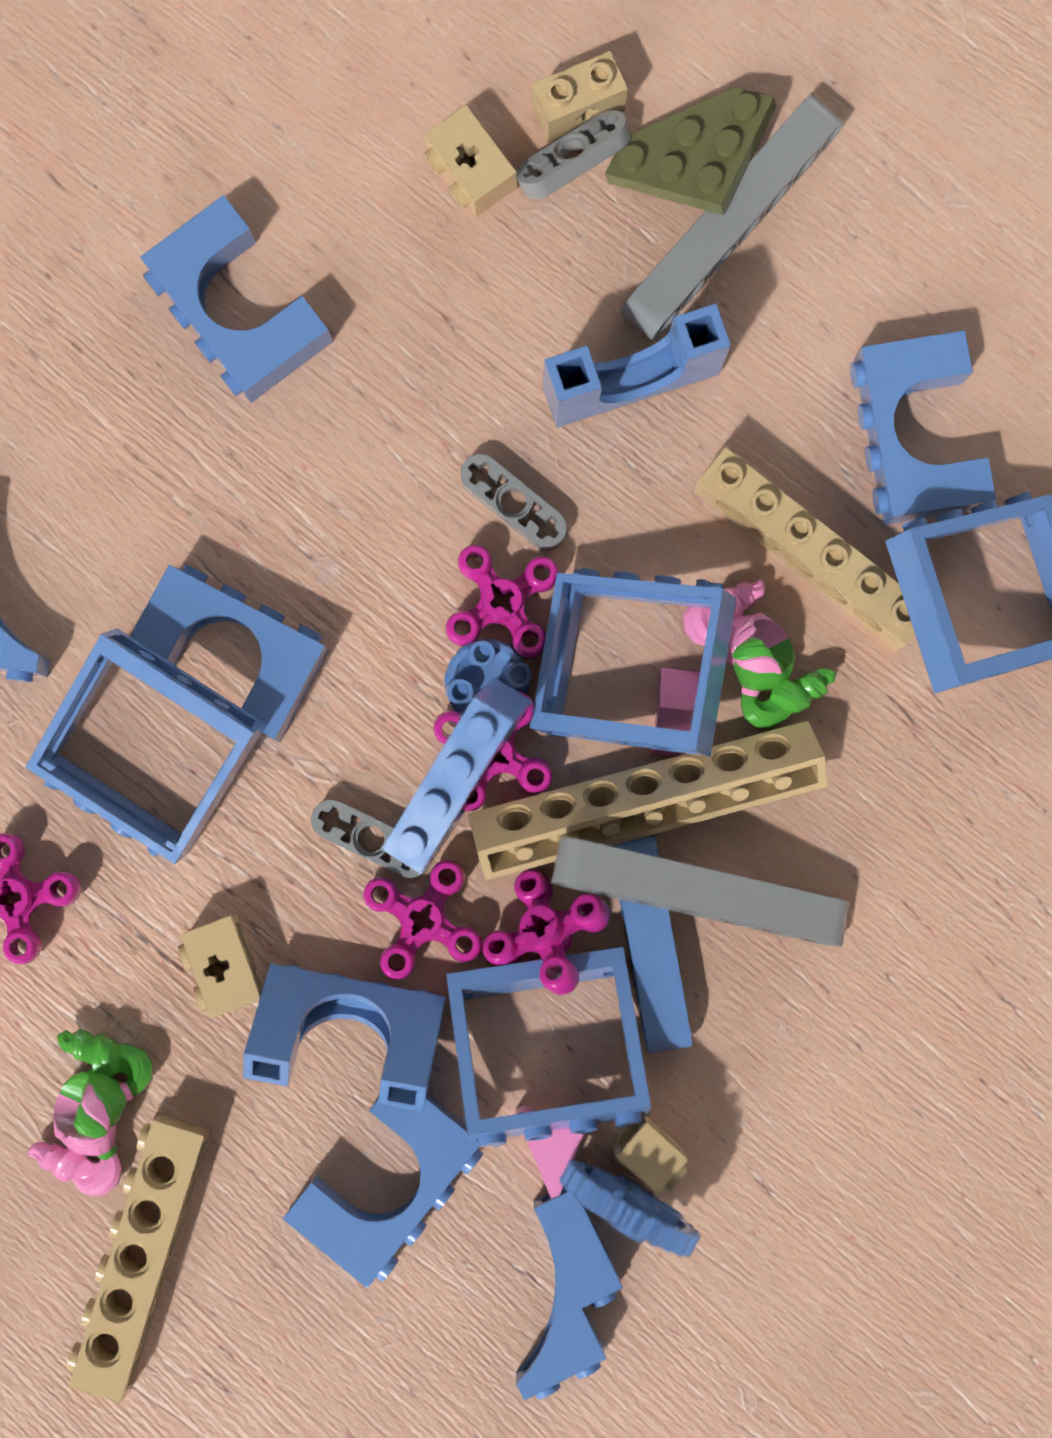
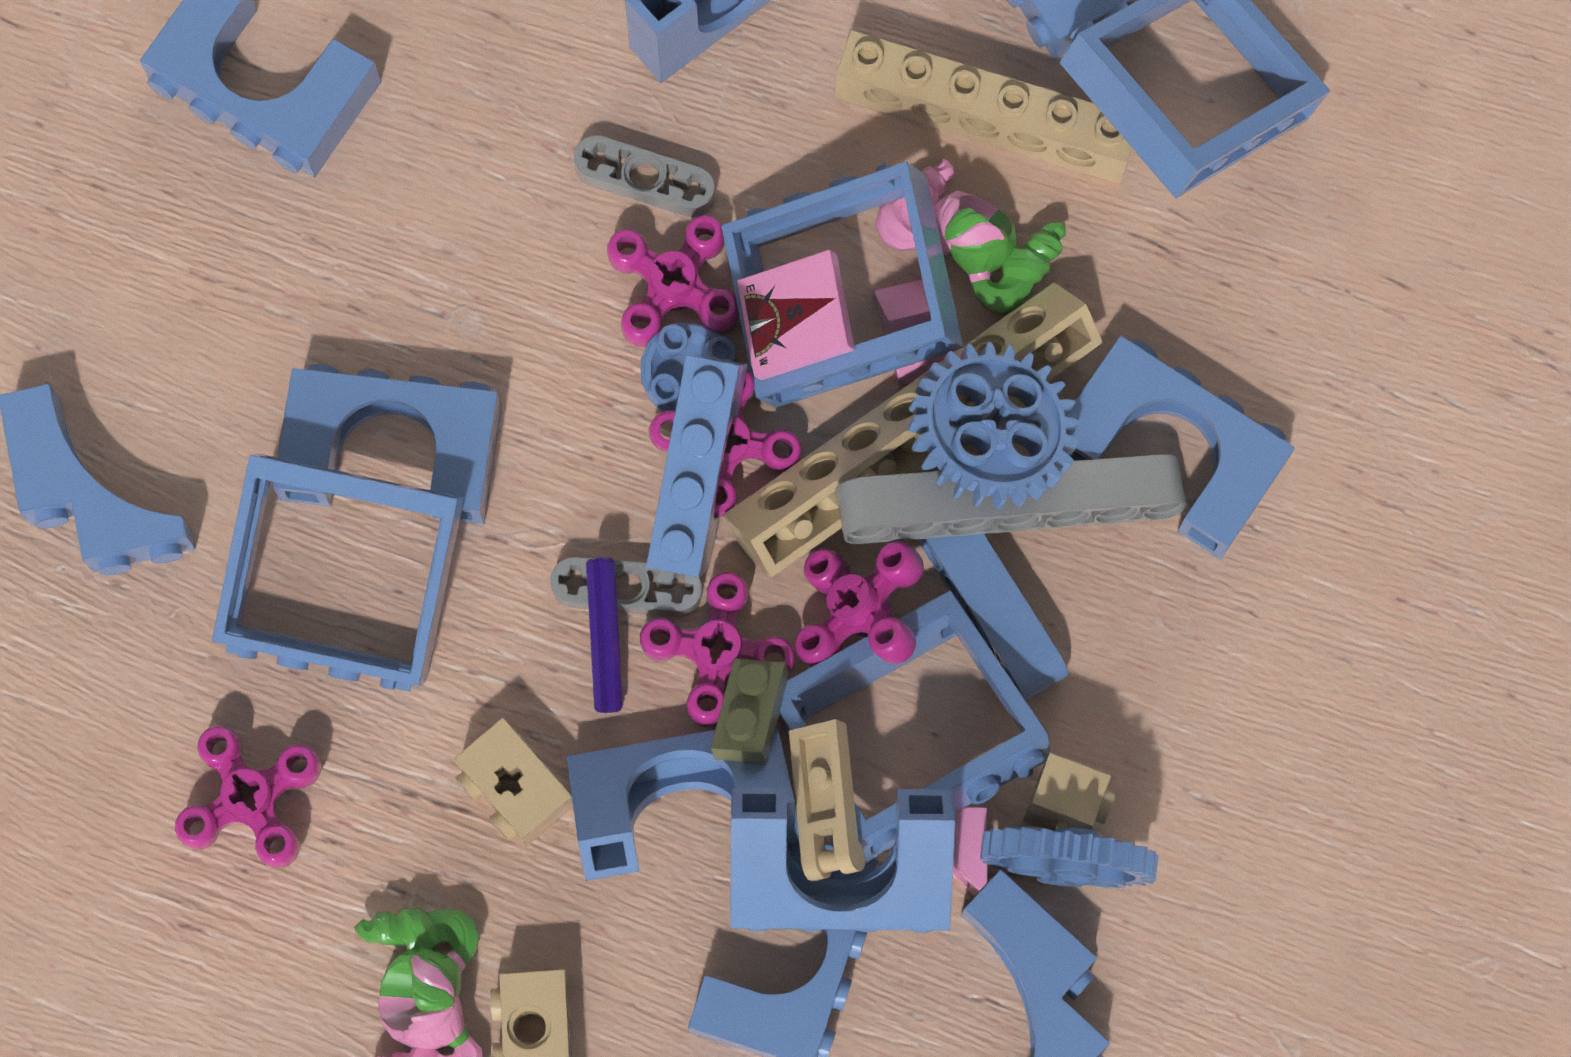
camera: 20 degrees left, 10 degrees down
(337, 874) = (604, 634): none -> dark purple axle
(425, 988) = (750, 711): none -> olive plate
(452, 1093) = (825, 800): none -> tan plate
(482, 1185) = (902, 894): none -> medium blue arch
(585, 676) = (795, 315): none -> bright pink tile
(698, 874) = (993, 425): none -> medium blue gear
(904, 921) = (1244, 453): none -> medium blue arch

